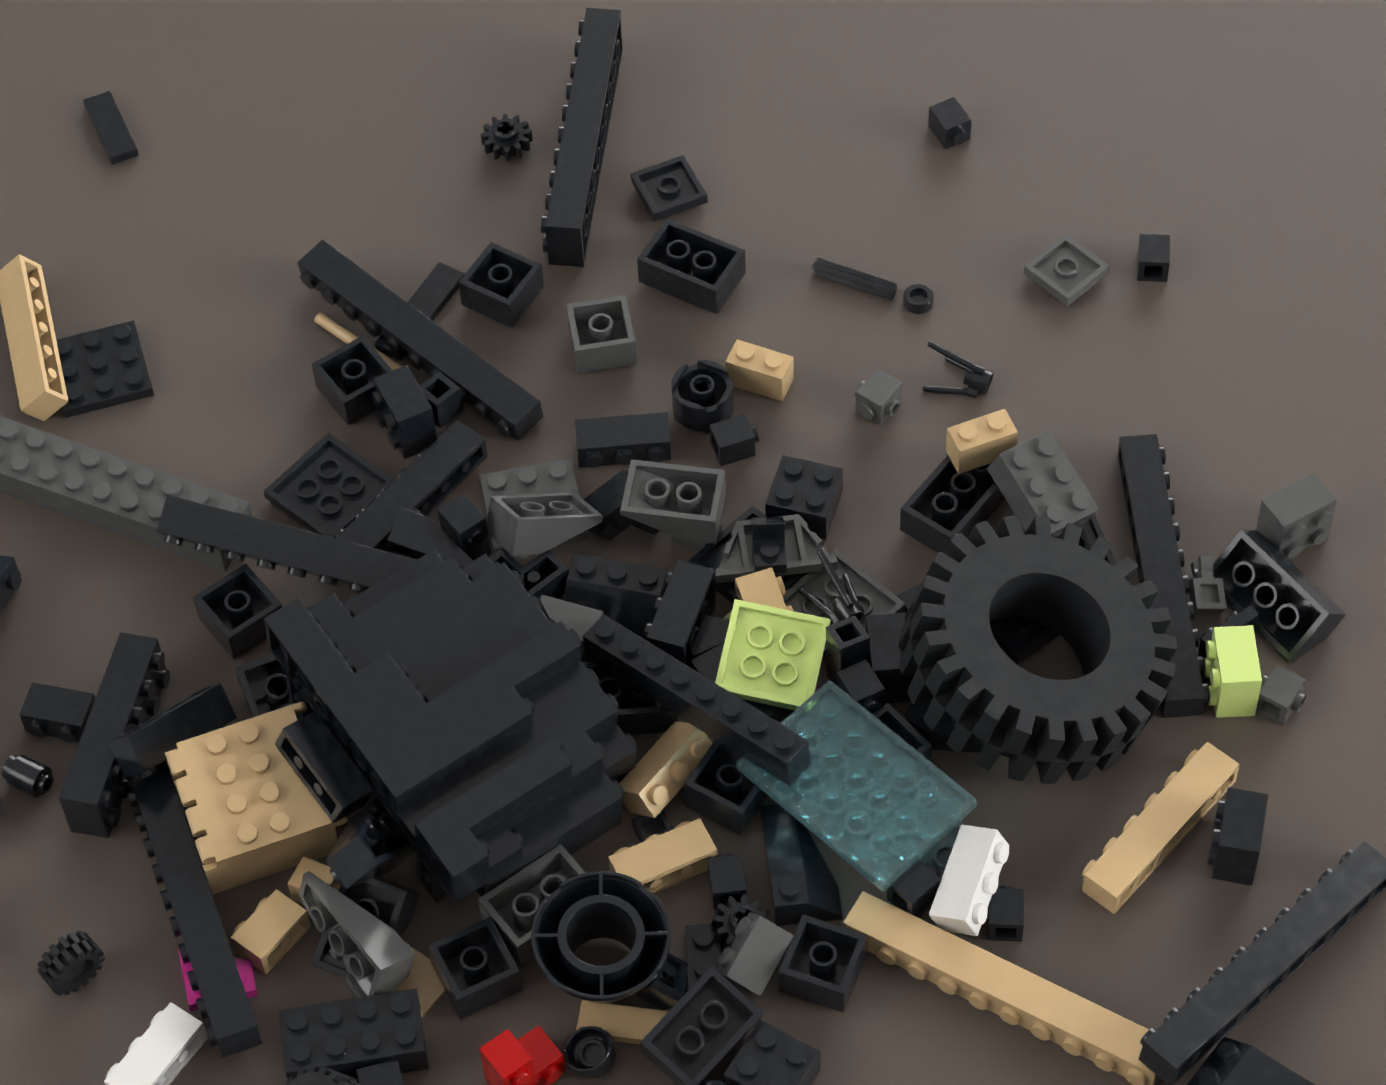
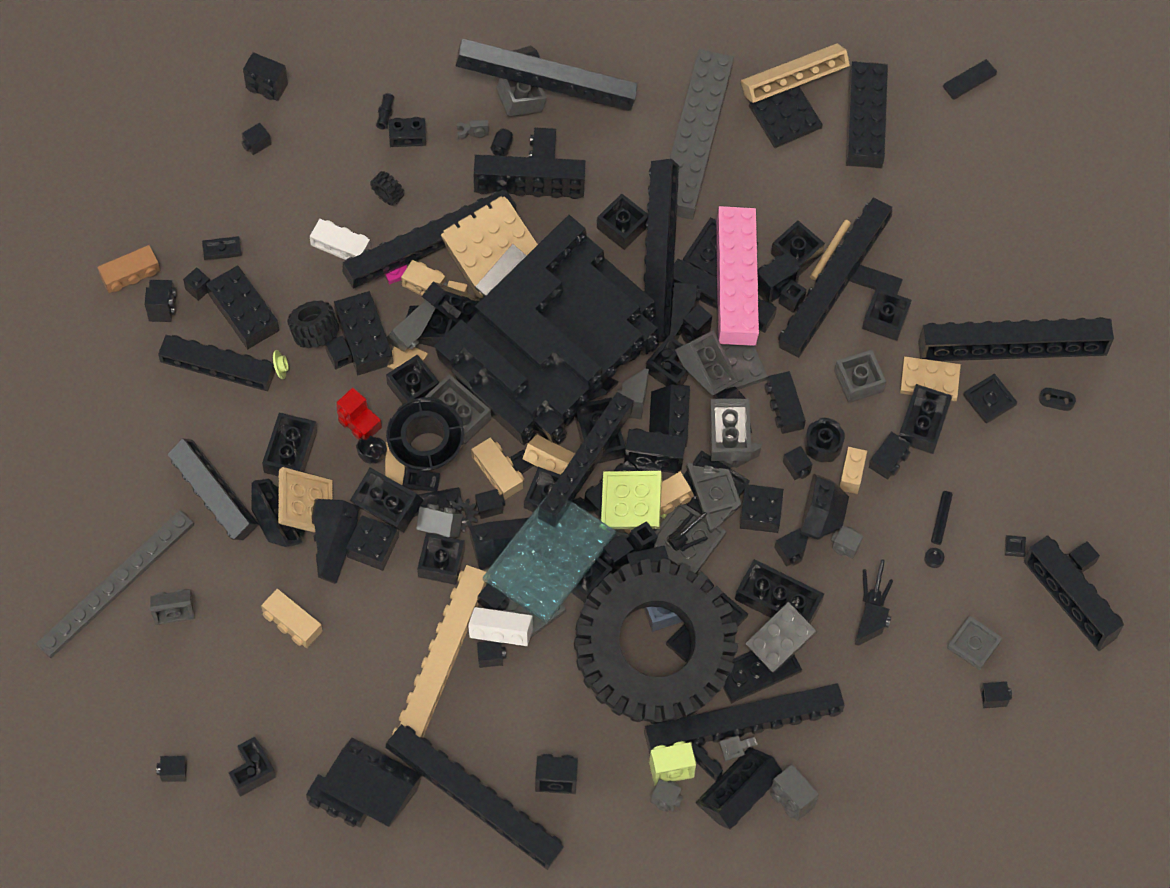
camera: 75 degrees right, 10 degrees up
(136, 258) = (867, 114): none -> black brick
(145, 745) = (530, 201): black brick -> none
(392, 456) = (737, 276): none -> bright pink brick
(506, 137) = (1009, 298): black gear -> none
(612, 257) = (931, 374): none -> tan plate
(689, 114) = (1057, 399): none -> black beam
(739, 318) = (889, 456): none -> black brick
(769, 544) = (713, 488): black slope -> none
(819, 412) = (824, 508): none -> black wedge
(874, 464) = (791, 547): none -> black slope
(914, 200) = (1015, 546): none -> black tile
(980, 440) = (805, 595): tan brick -> none
(1009, 135) = (1073, 592): none -> black brick
(1019, 387) = (873, 623): none -> black slope
(1159, 827) = (561, 733): tan brick -> none

